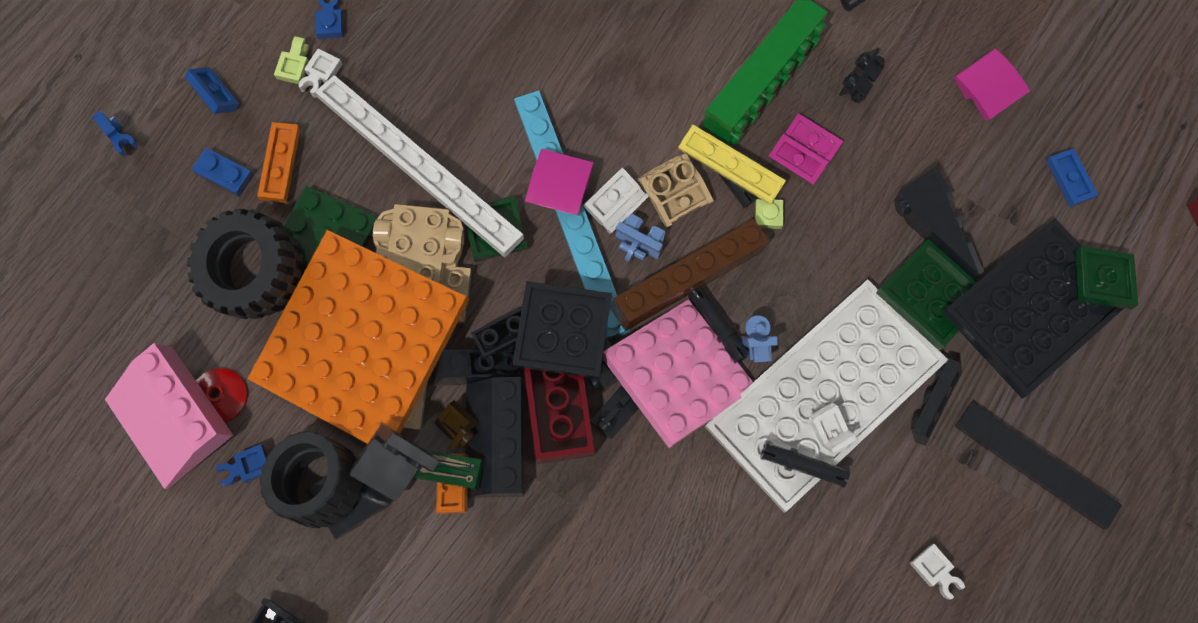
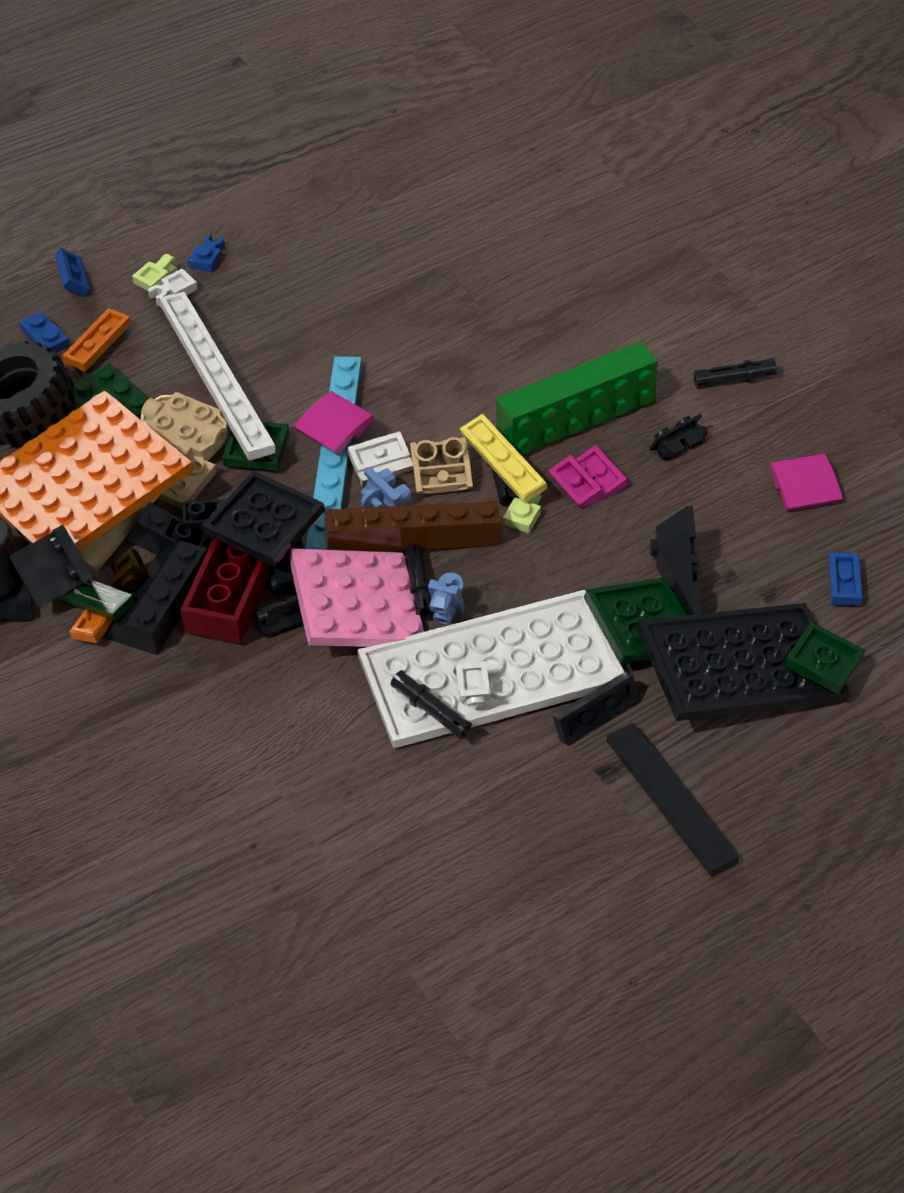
camera: 25 degrees right, 25 degrees down
(935, 568) = (514, 840): white plate -> none

